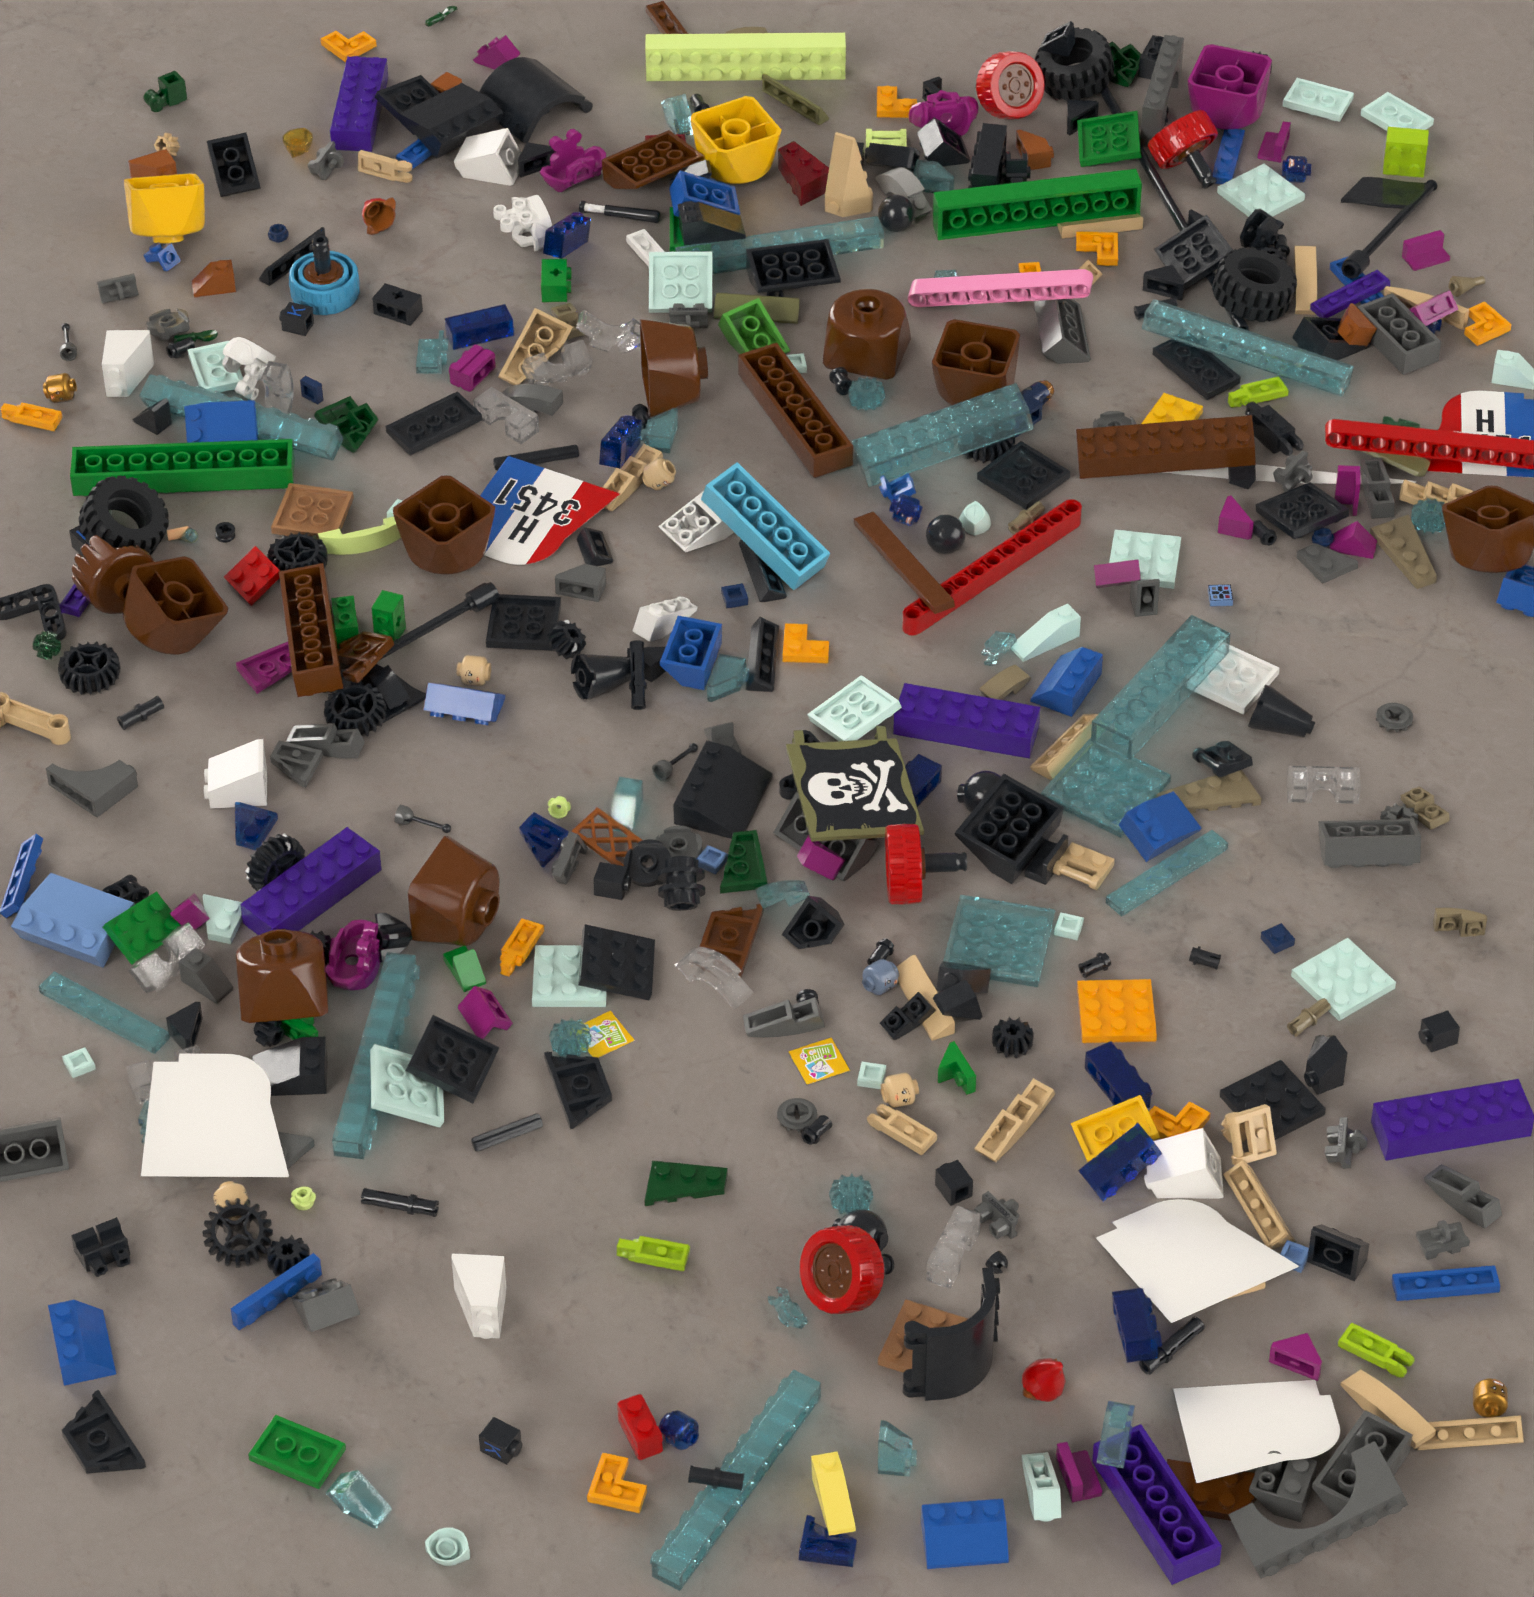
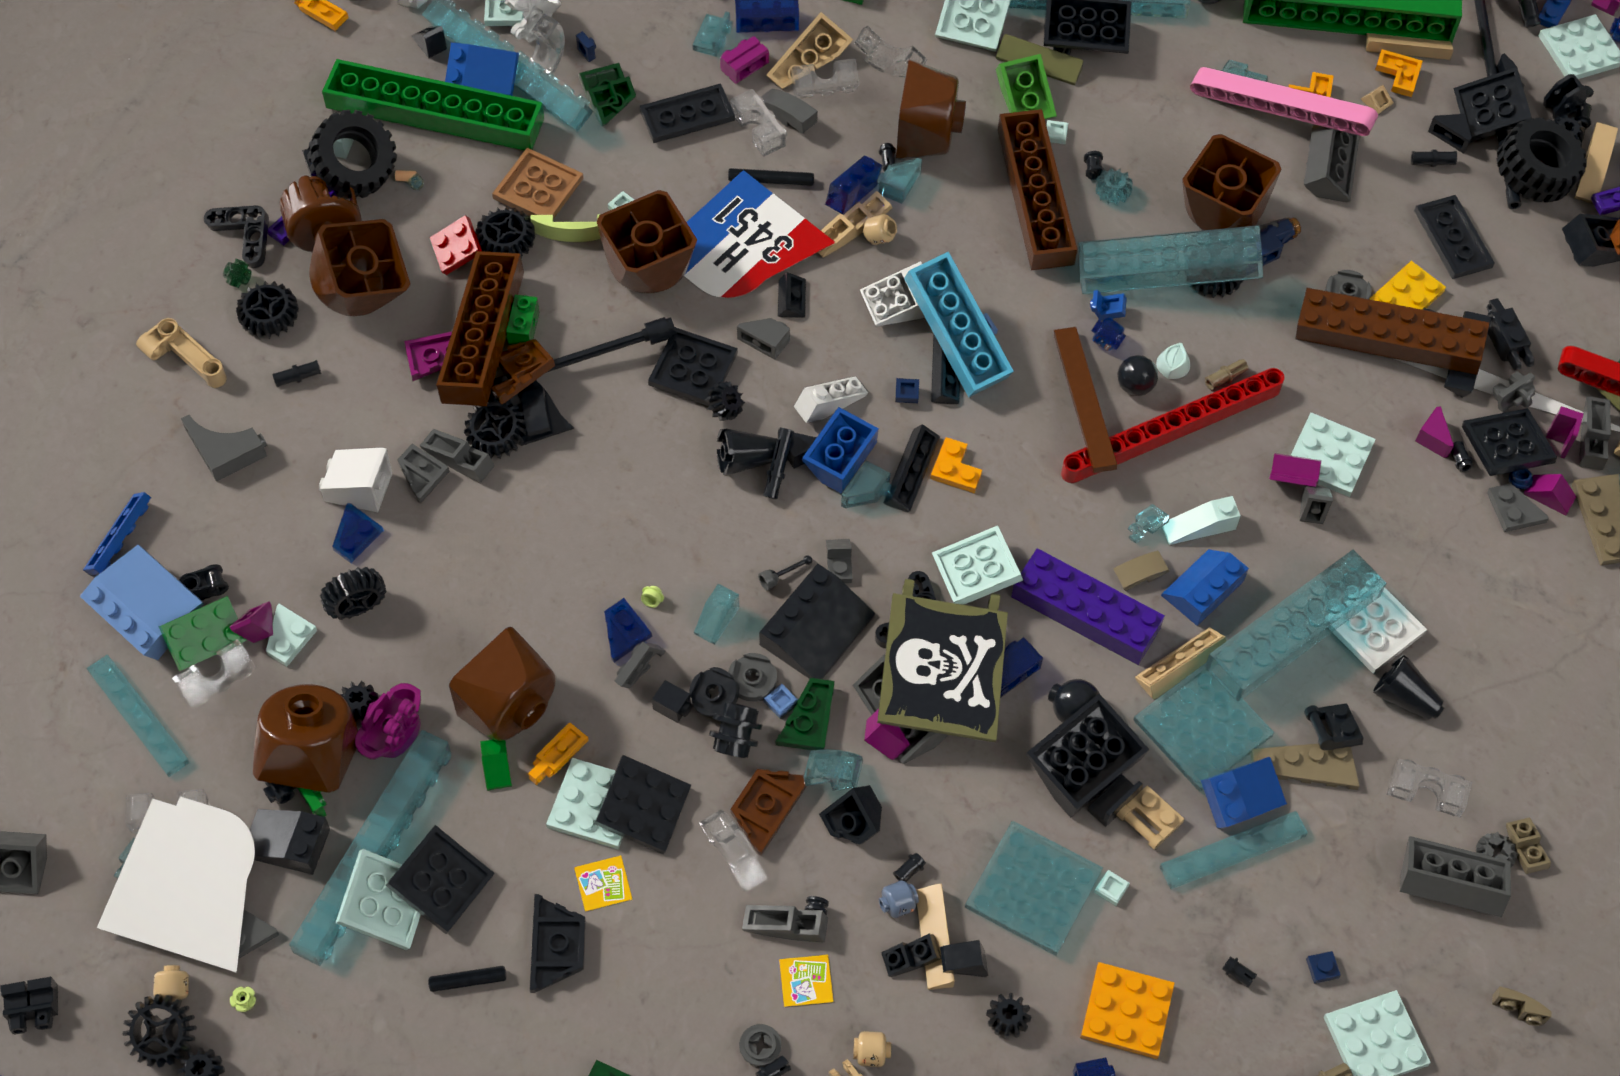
camera: 15 degrees right, 15 degrees up
(79, 1062) = (92, 768): light aqua tile -> none
(185, 1025) = (205, 758): black slope -> none
(204, 975) = (242, 701): dark grey slope -> none
(225, 537) = (450, 179): black bush -> none
(312, 884) = (381, 626): dark purple brick -> none
(389, 615) = (562, 330): green brick -> none
(392, 934) = (435, 708): black brick -> none
(405, 815) = (502, 564): hinge -> none
(411, 1204) = (341, 1040): black pin -> none
(463, 703) = (603, 446): slope -> none
(474, 670) = (625, 411): tan head -> none
(483, 1012) = (495, 824): magenta panel -> none
(569, 315) = (853, 23): dark tan slope -> none
(570, 1037) = (561, 875): clear light blue gear -> none
(588, 823) = (697, 632): dark orange window -> none
(695, 317) = (969, 54): dark grey hips -> none
(866, 334) = (1134, 120): reddish brown piece -> none
(871, 1075) = (852, 1016): light aqua tile -> none
(908, 863) = (968, 776): red wheel -> none
(953, 973) = (978, 924): black slope -> none
(956, 1066) = (938, 1032): green slope -> none
(1023, 475) = (1239, 322): black plate -> none
(1094, 965) = (1123, 946): black pin -> none
(1220, 595) = (1394, 520): medium blue tile -> none
(1248, 347) = (1512, 232): clear light blue brick -> none
(1258, 392) = (1507, 285): lime hinge -> none
(1394, 710) = (1533, 713): dark grey gear -> none

